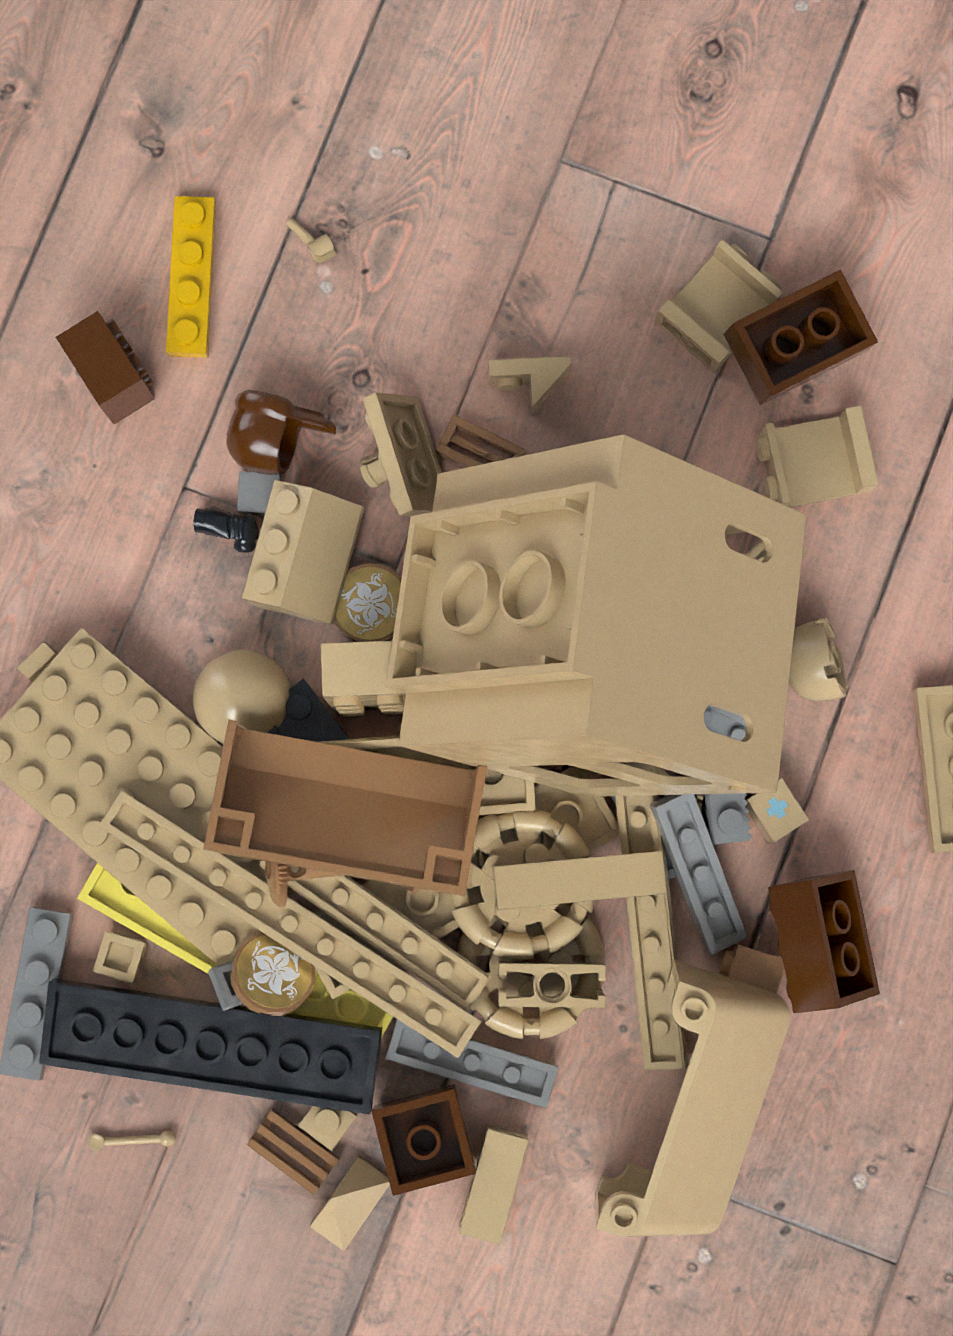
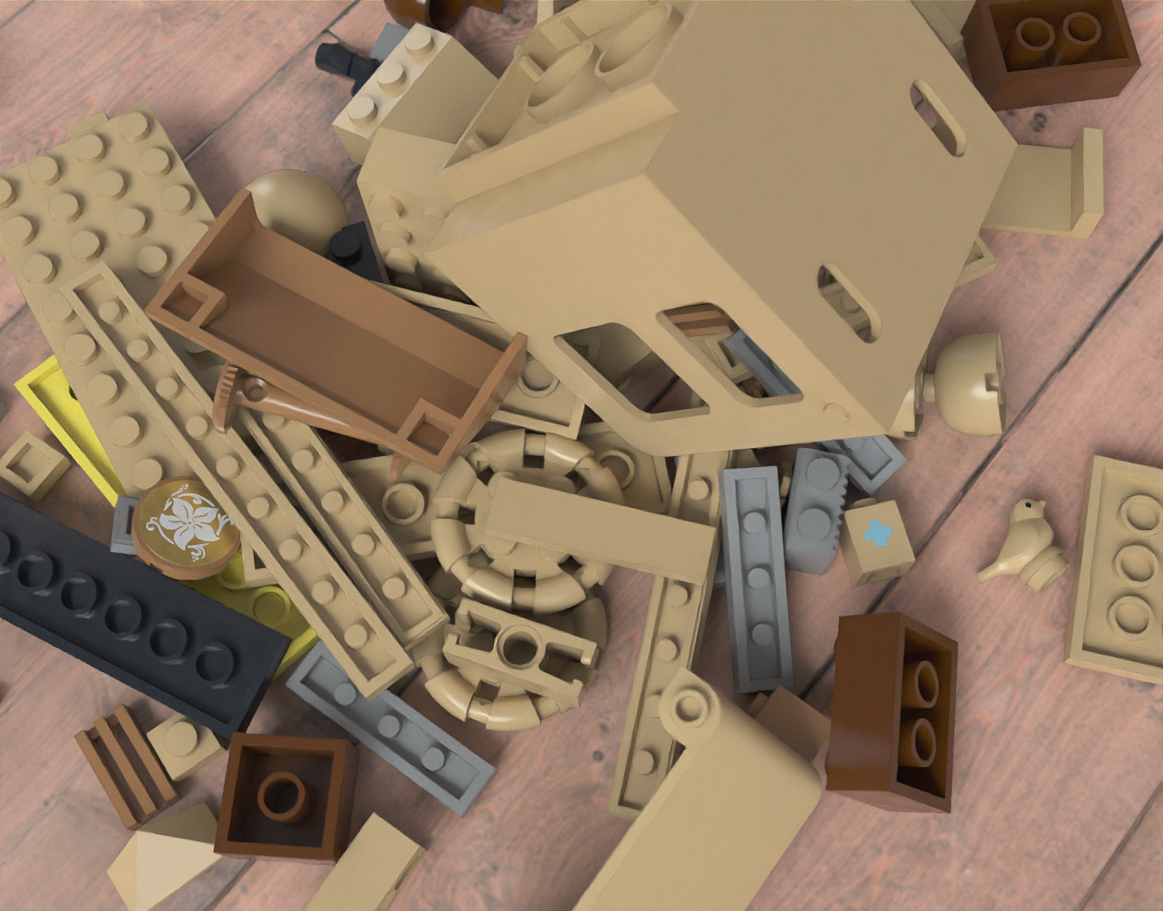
camera: 25 degrees right, 15 degrees down
(886, 776) = (1028, 549): none -> tan animal

